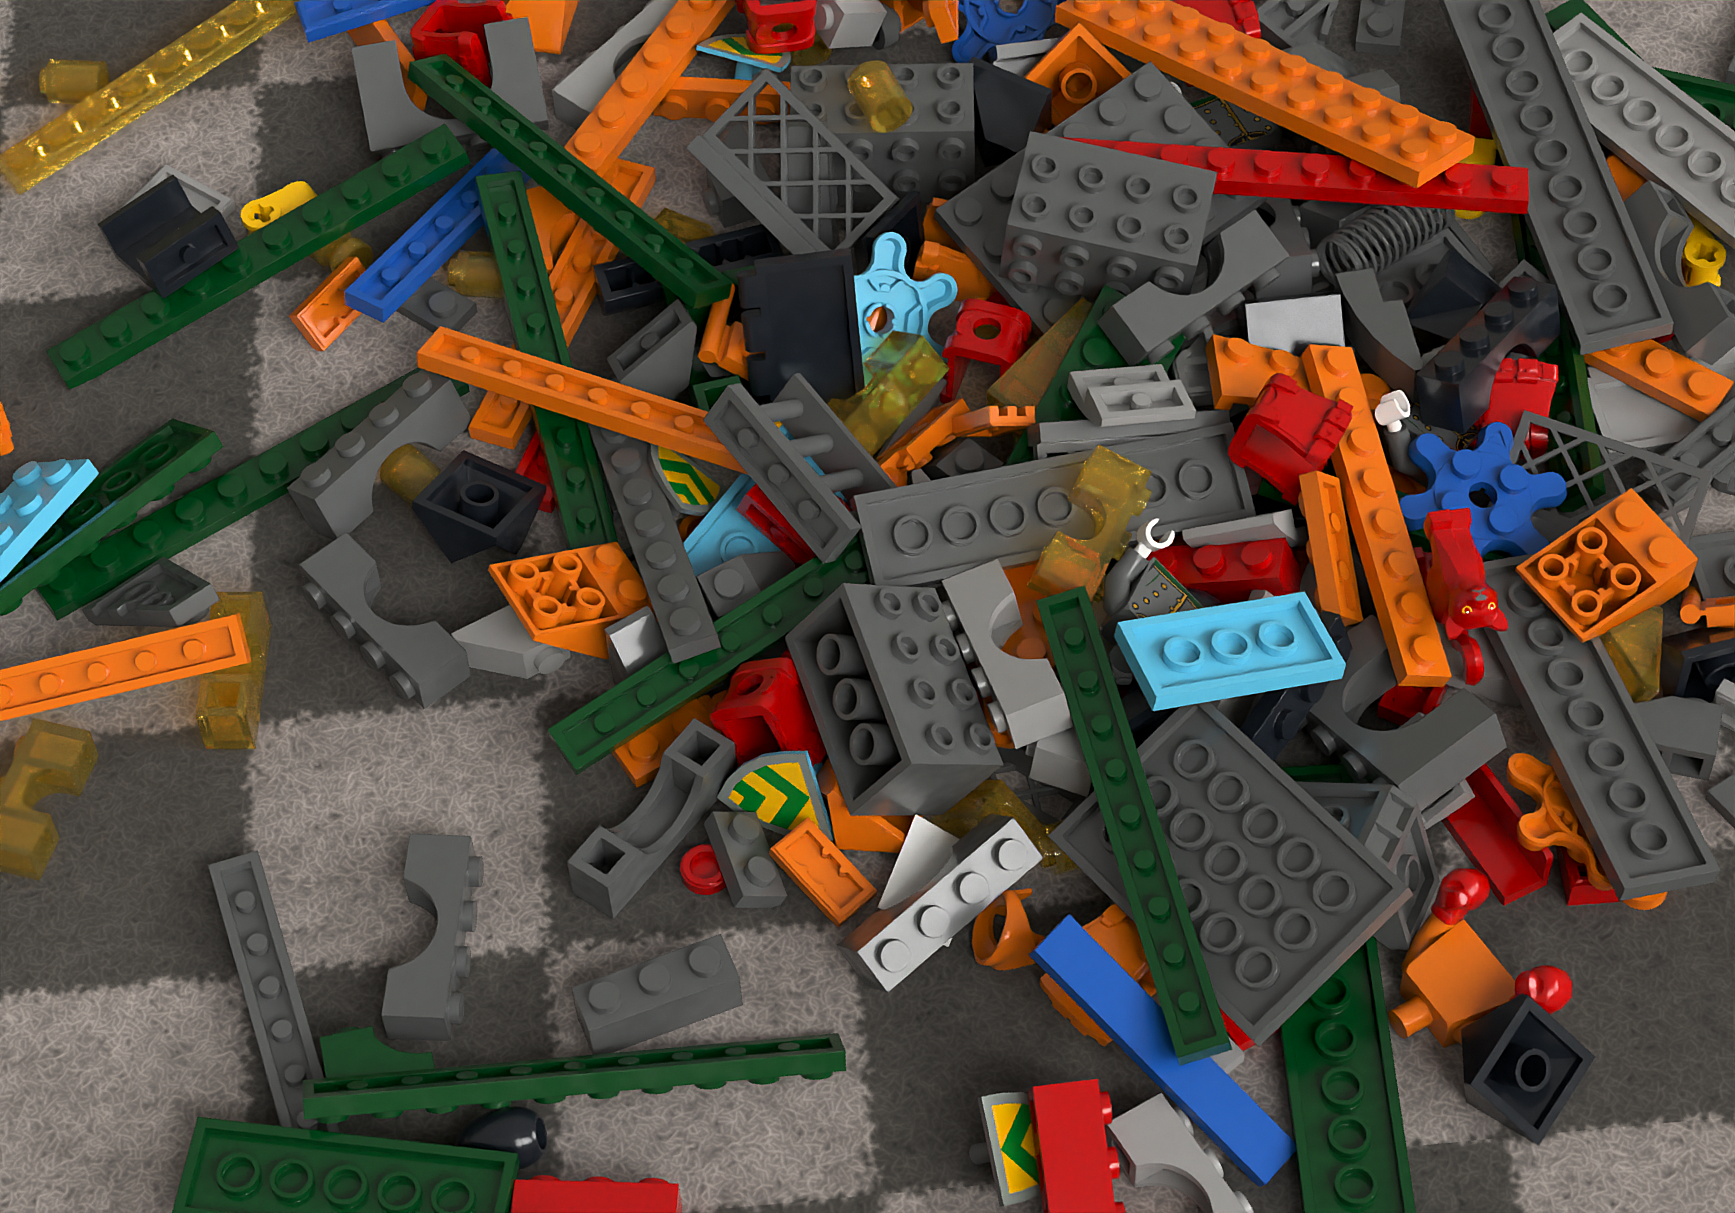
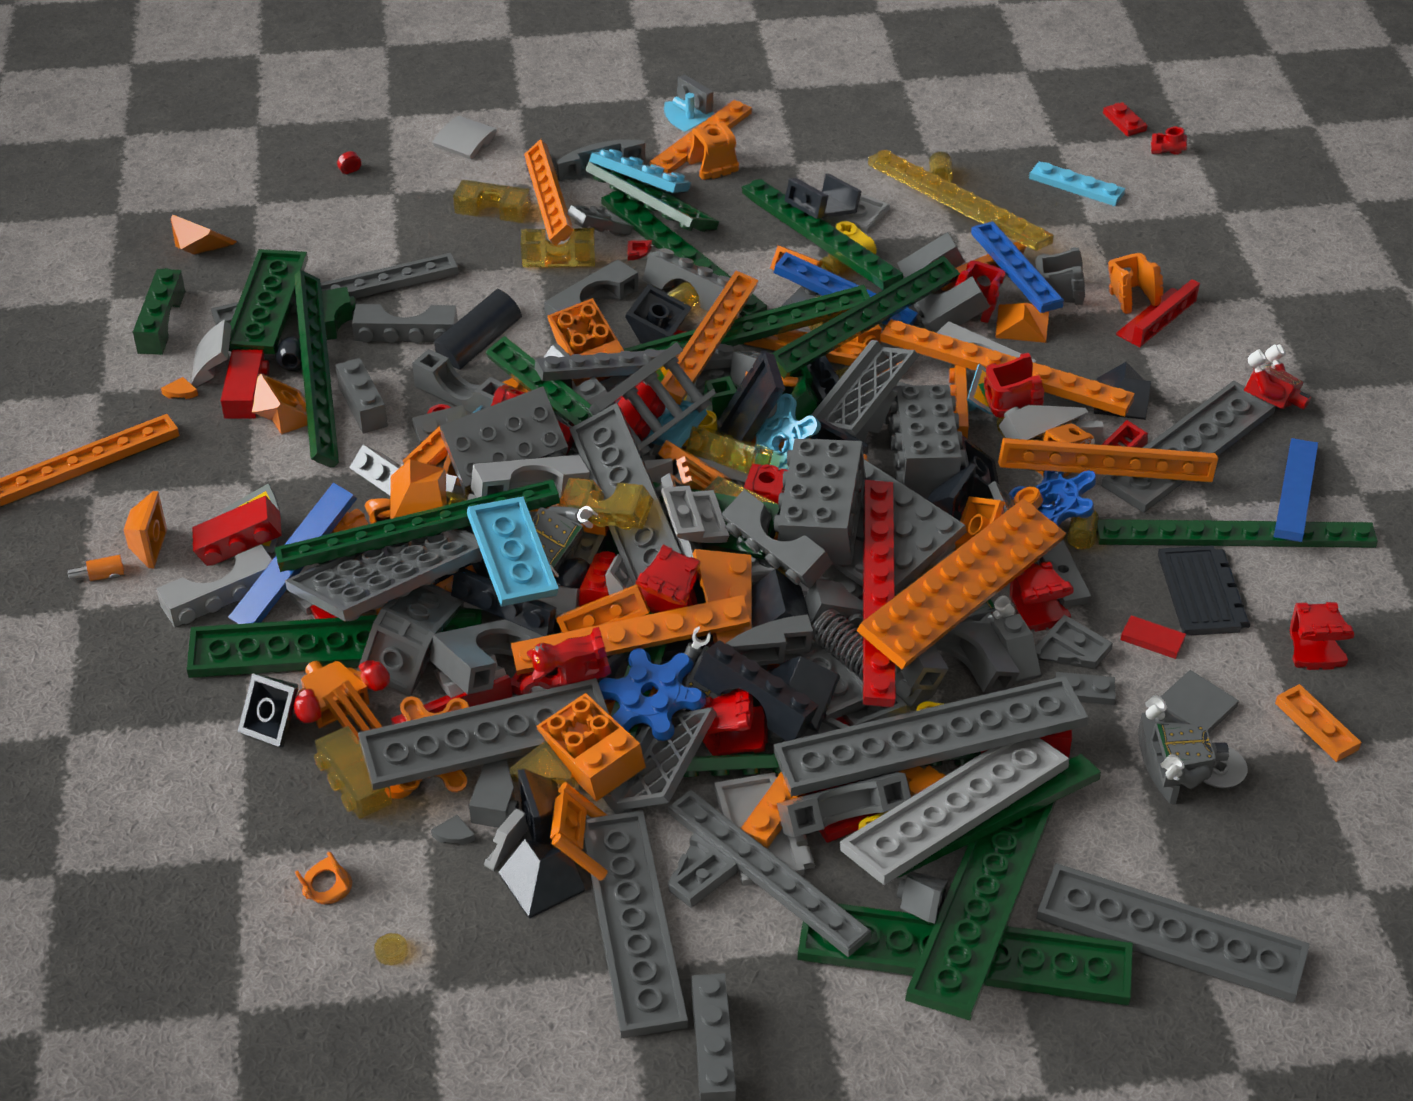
camera: 85 degrees right, 10 degrees down
(229, 555) = (637, 248): none -> red tile
(458, 808) = (478, 328): none -> black brick
(676, 1136) = (280, 404): none -> orange slope
(879, 96) = (913, 406): clear yellow brick -> none
(1002, 26) = (1031, 495): none -> orange tile
(1034, 831) = (417, 488): none -> orange slope
(1509, 937) = (358, 702): none -> orange tile
(1638, 944) = (346, 768): none -> clear yellow brick

